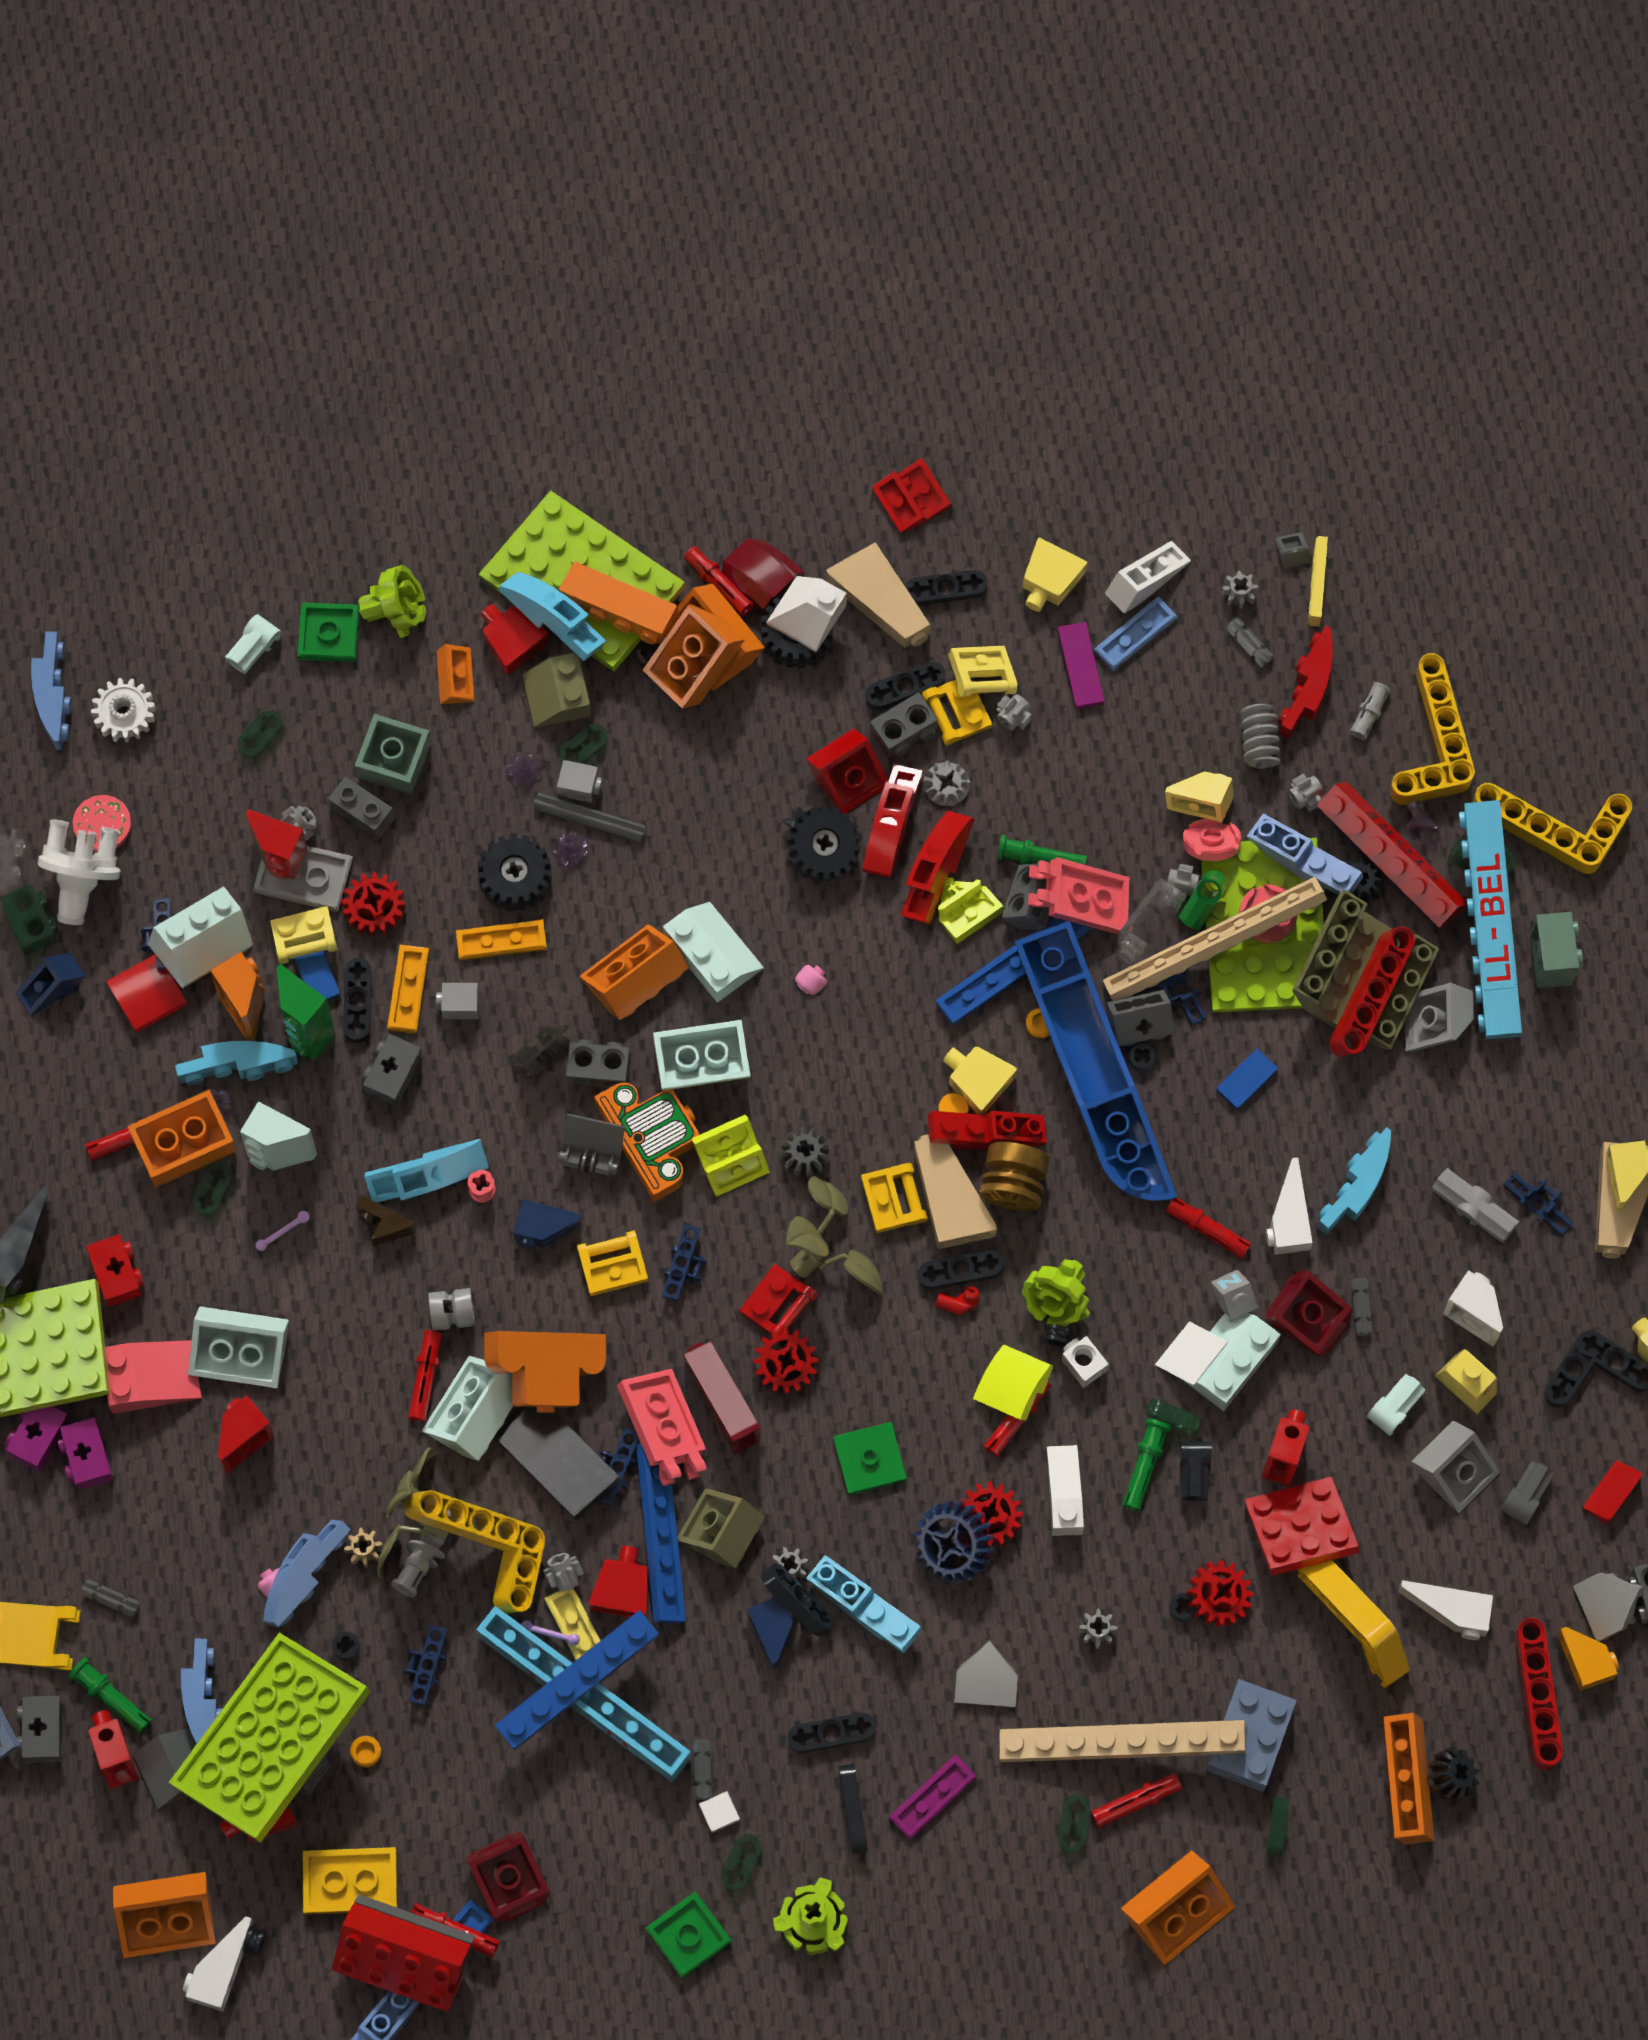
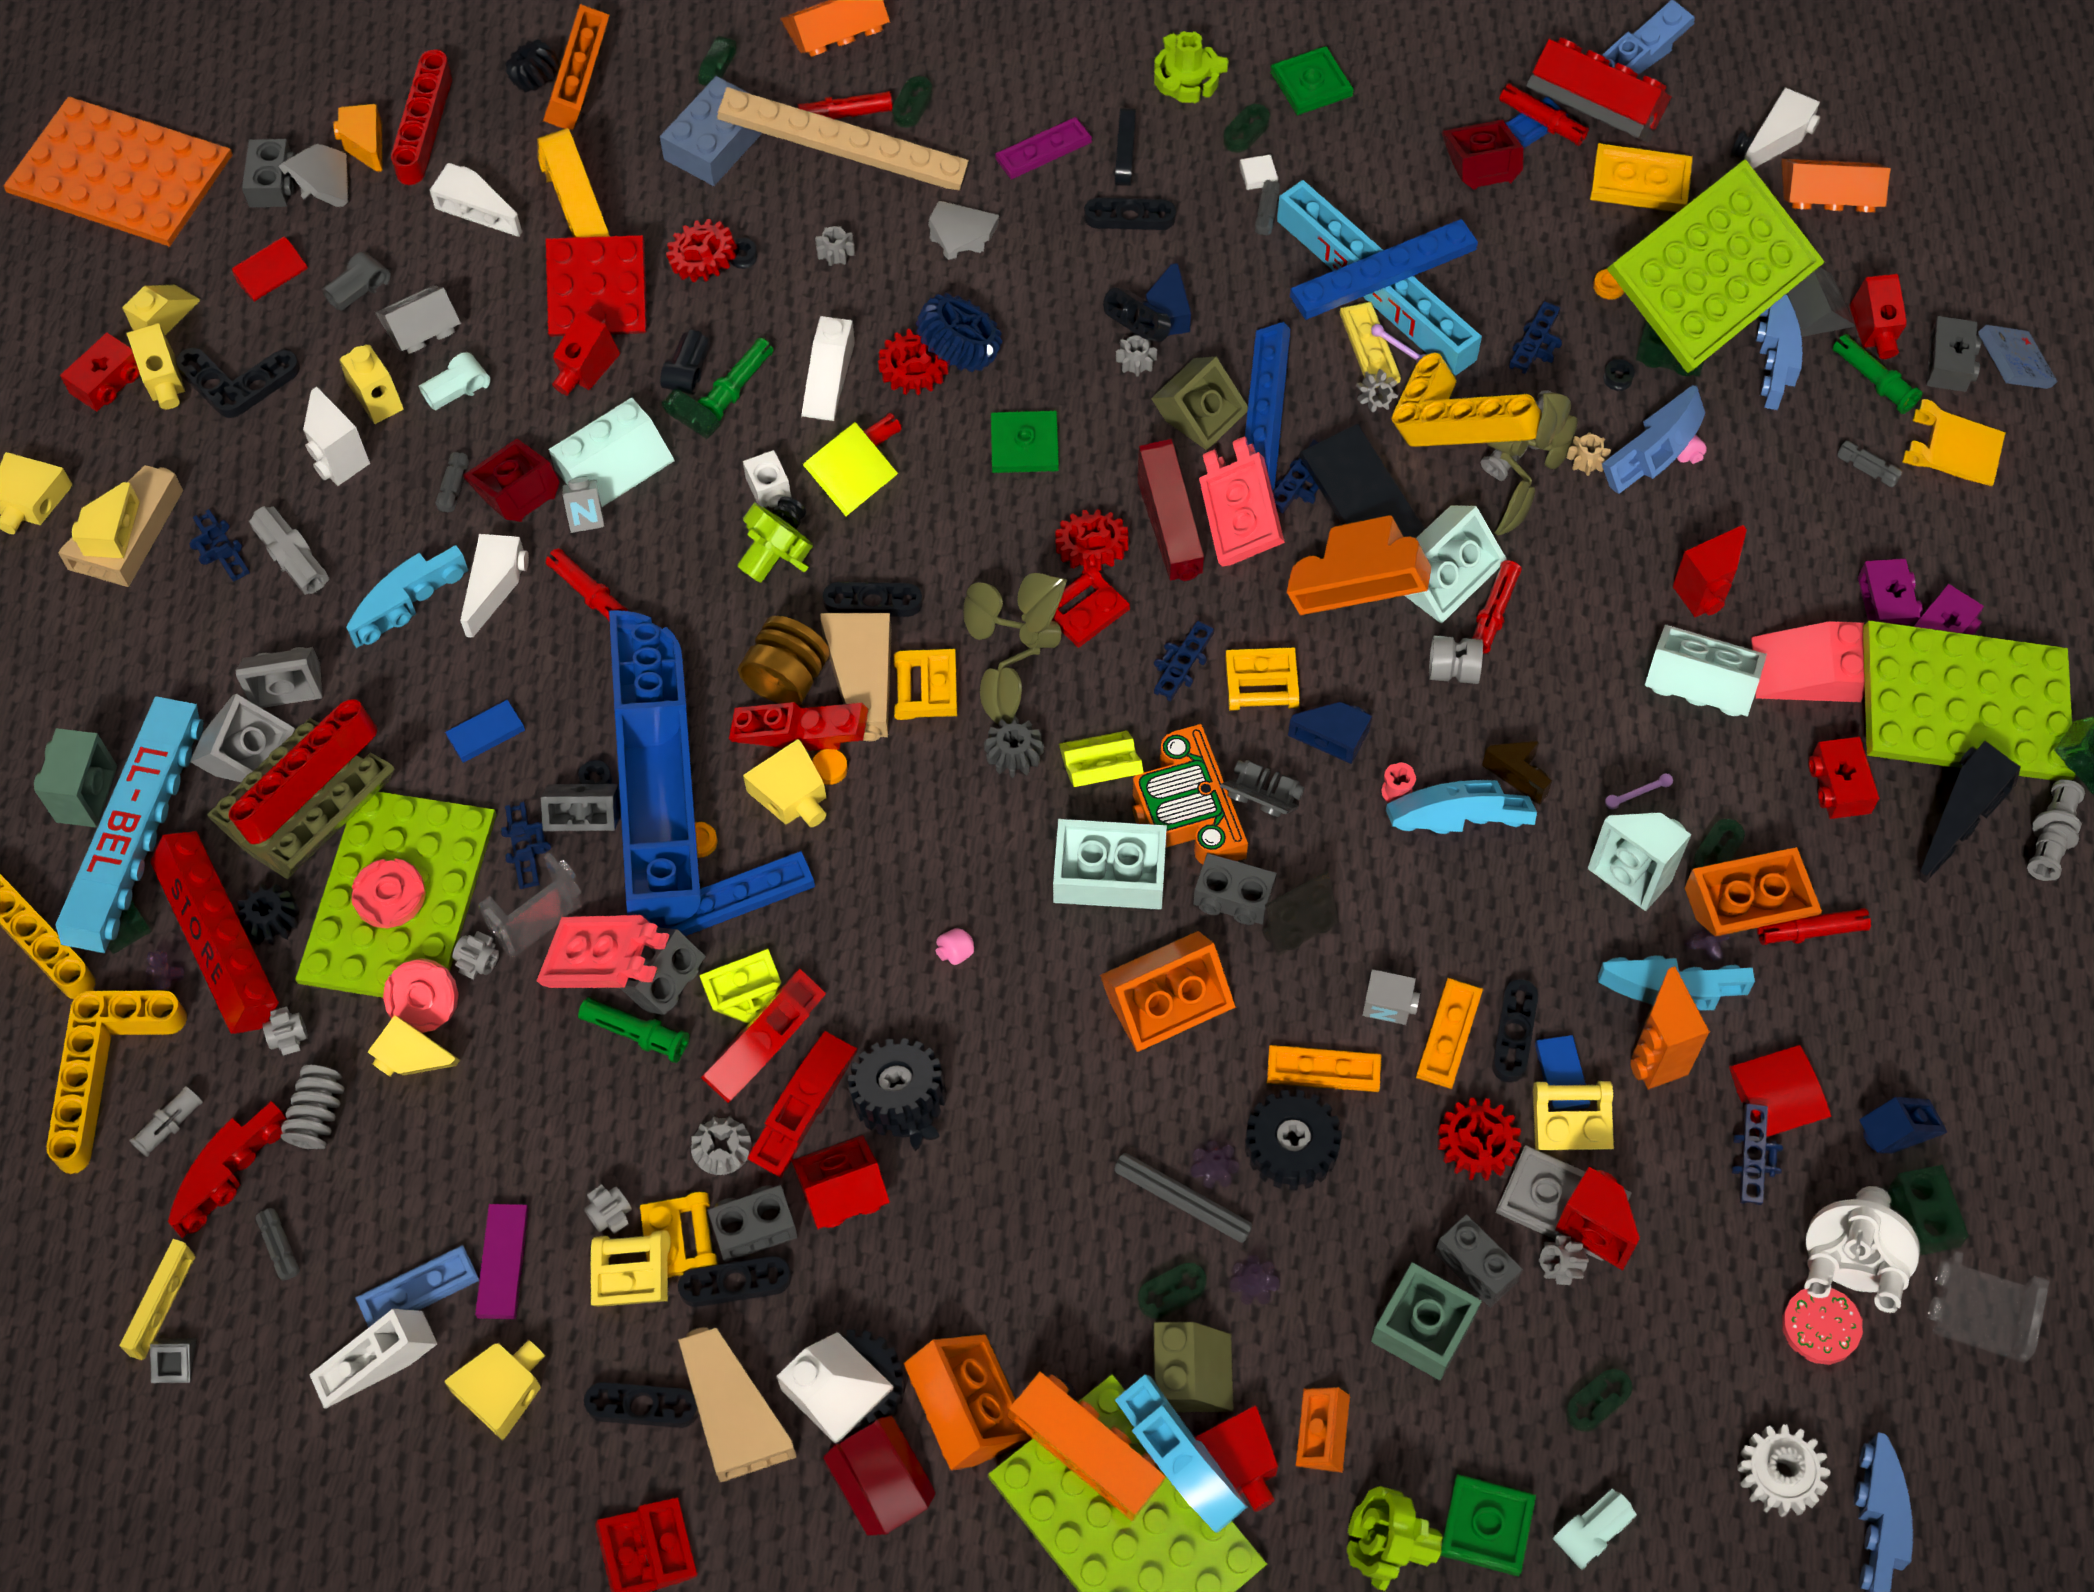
camera: 165 degrees left, 10 degrees down
(201, 937) = (1708, 1131): light aqua slope -> none
(304, 1015) = (1593, 980): green slope -> none
(391, 1086) = (1489, 915): dark grey brick -> none
(578, 781) = (1187, 1238): light grey brick -> none
(621, 1586) = (1317, 367): red torso -> none
(693, 656) = (1000, 1347): orange slope -> none
(710, 573) = (948, 1491): red pin -> none
(712, 950) = (1066, 995): light aqua slope -> none
(863, 1604) = (1065, 307): medium azure slope -> none
(960, 1304) = (884, 566): red arm -> none
(1191, 1353) = (650, 466): white sticker -> none
(1202, 900) = (450, 921): green piece -> none
(1215, 940) = (456, 863): tan plate -> none
(1241, 596) = (269, 1318): light grey gear -> none
(1302, 857) = (317, 937): medium blue slope -> none
(1430, 1080) = (281, 677): none -> light grey slope

